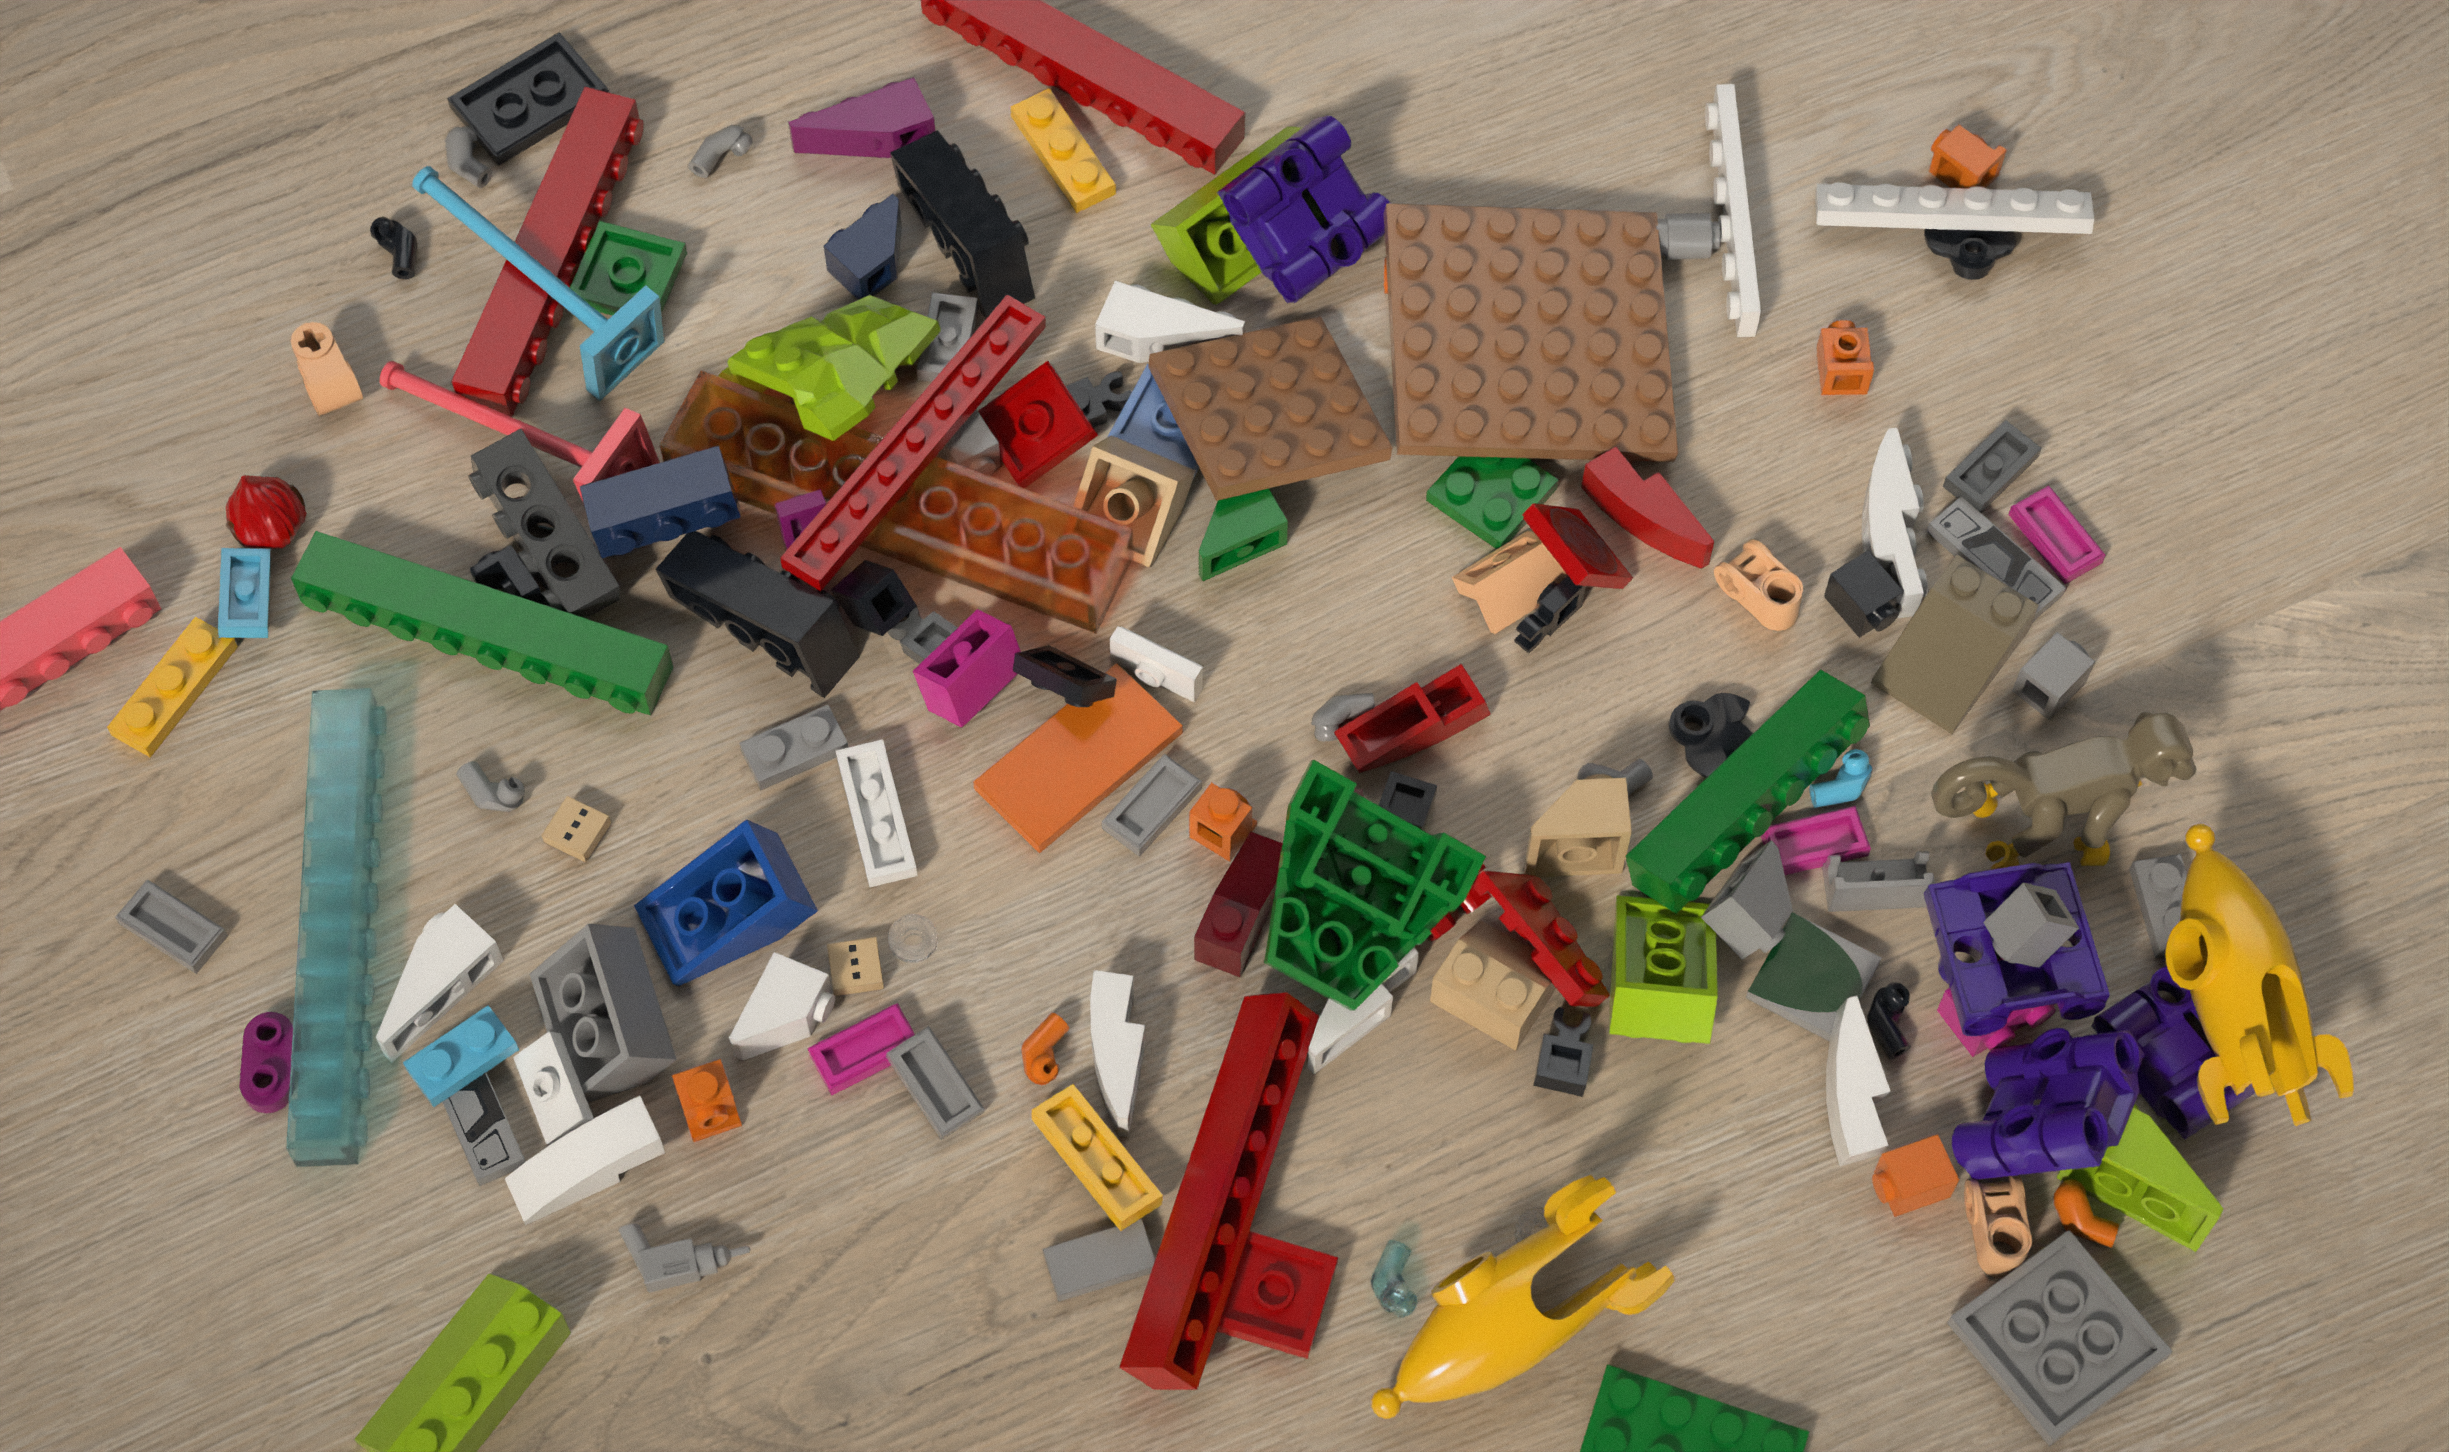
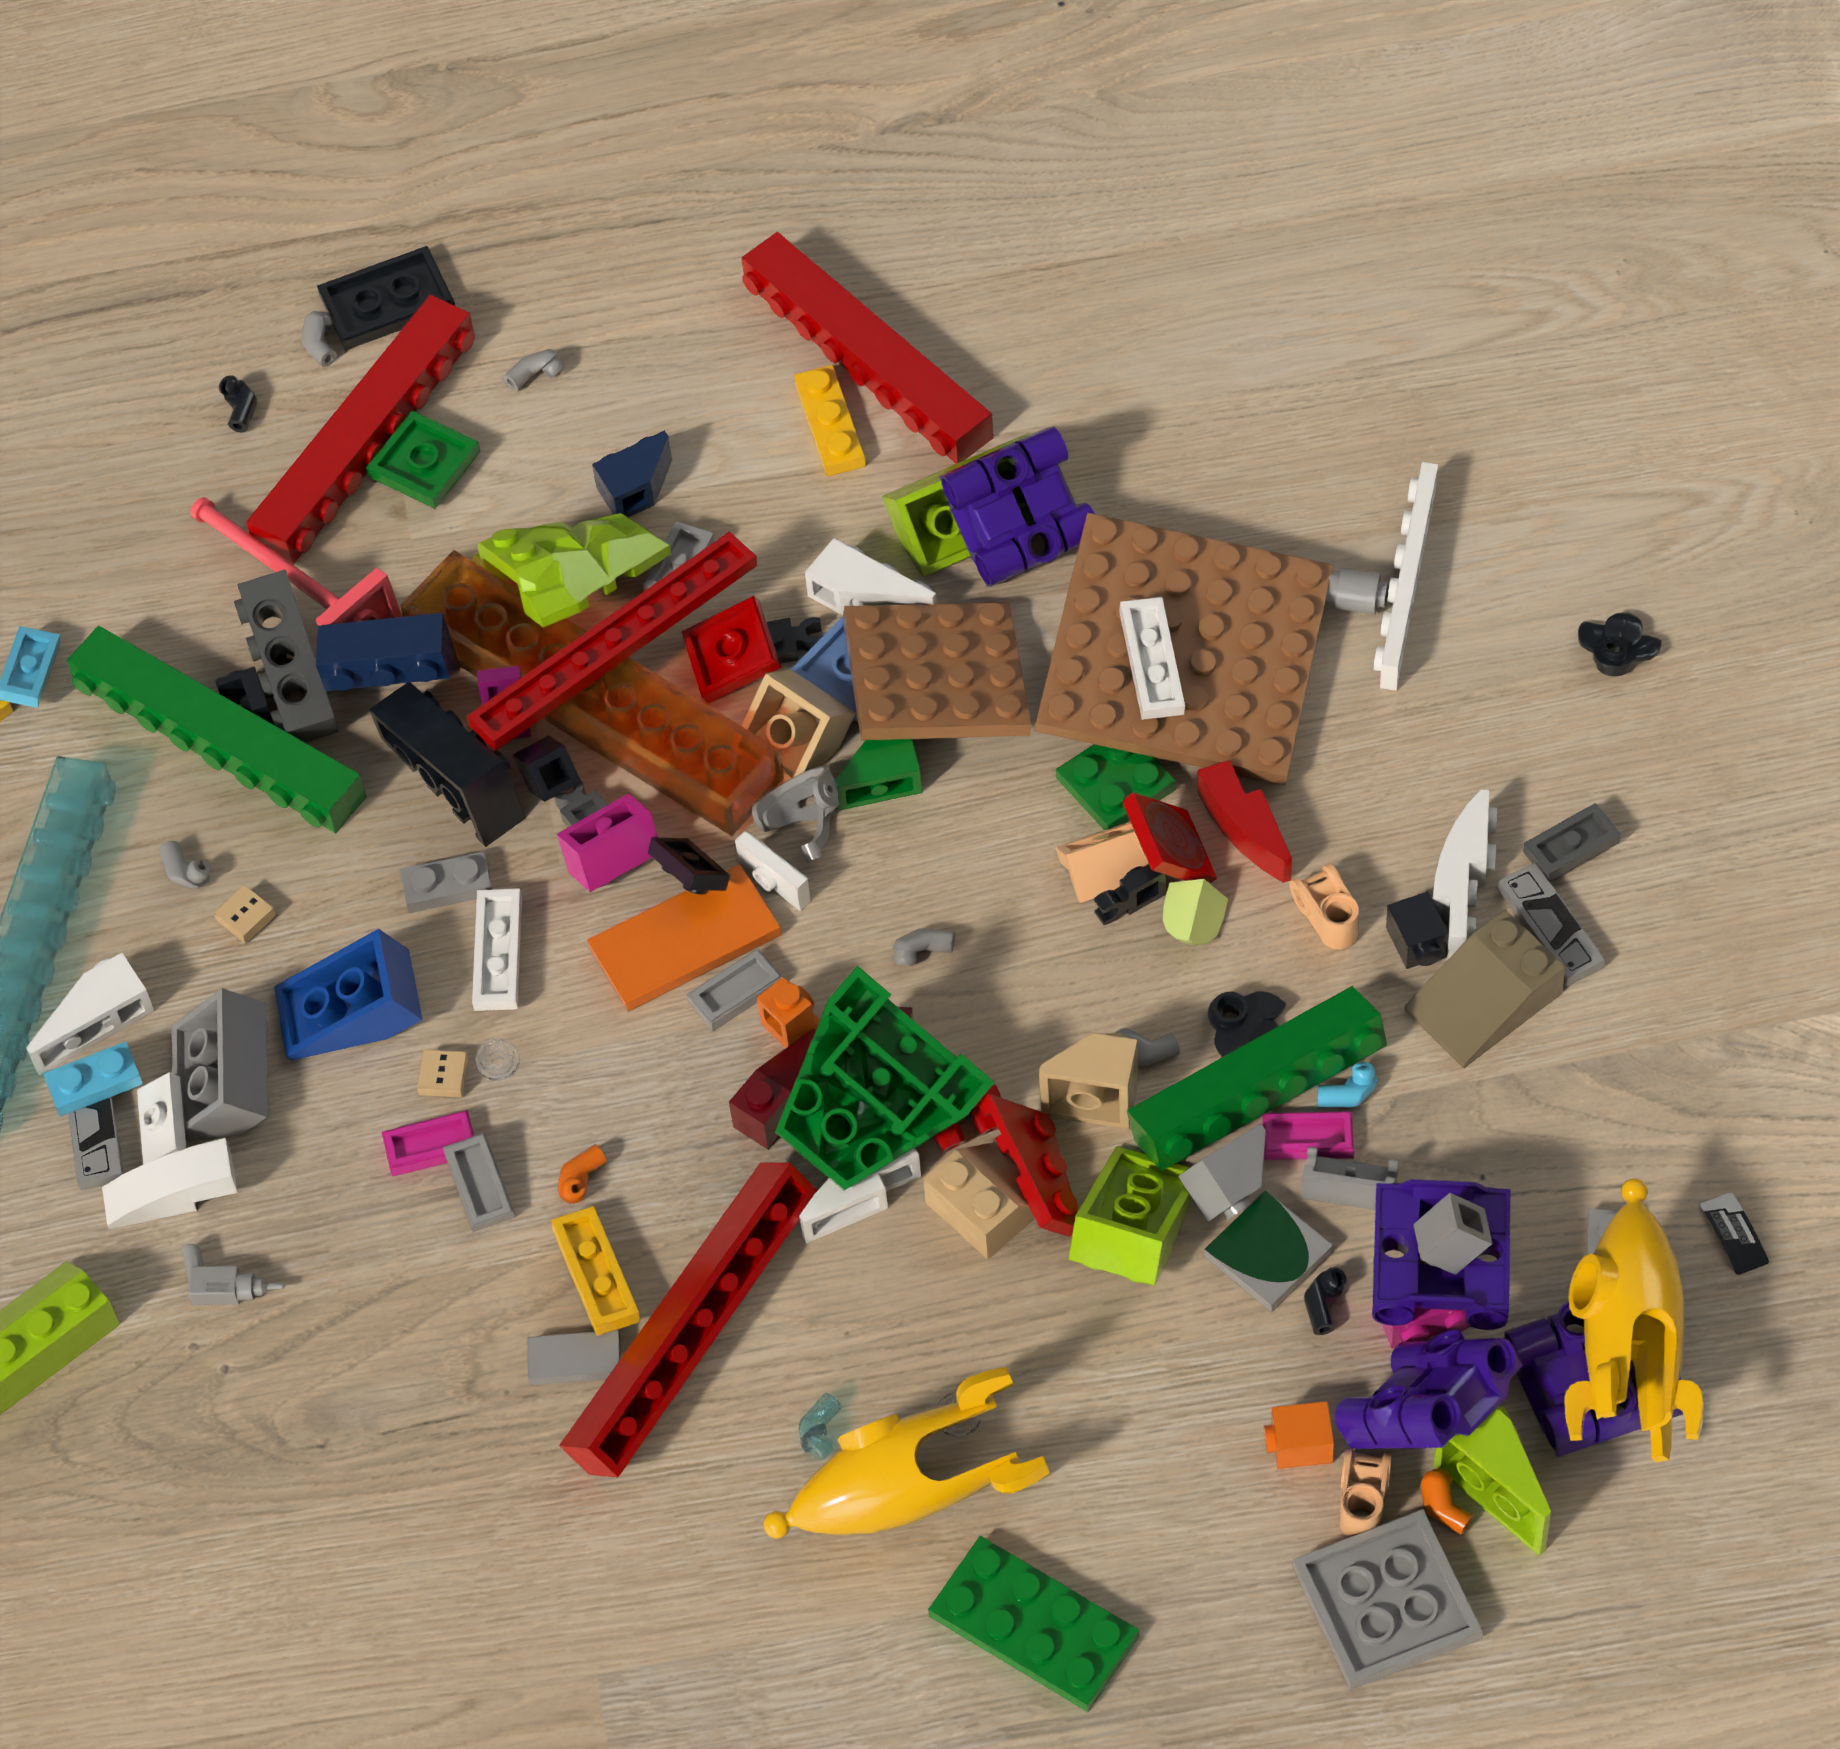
camera: 20 degrees right, 5 degrees down
(265, 512) = (64, 603): red hair -> none
(324, 369) = (146, 493): light nougat piece -> none
(617, 342) = (392, 514): medium azure tile -> none
(707, 1100) = (283, 1156): orange brick -> none
(782, 1008) = (367, 1094): white slope -> none
(866, 124) = (670, 370): magenta slope -> none
(965, 220) = (722, 463): black wedge -> none
(973, 447) = (669, 657): light grey brick -> none
(1116, 1045) = (640, 1181): white slope -> none
(1141, 591) = (783, 807): none -> light grey helmet
(1278, 1295) = (713, 1416): red plate -> none
(1408, 798) = (955, 1028): black plate -> none
(1413, 720) = (982, 961): red slope -> none
(1507, 351) = (1152, 658): none -> white plate
(1564, 1056) = (1025, 1272): black plate -> none
(1621, 619) = (1193, 911): none -> yellowish green brick
(1844, 359) = (1466, 724): orange brick -> none
(1853, 1087) = (1268, 1348): white slope -> none
(1954, 208) = (1610, 609): white plate -> none
(1965, 159) = (1635, 571): orange brick -> none
(2053, 675) = (1567, 1033): light grey brick -> none
(2056, 534) = (1614, 913): dark pink tile -> none
(2074, 779) = (1537, 1120): dark tan animal -> none
(2286, 855) = (1735, 1233): none -> sticker

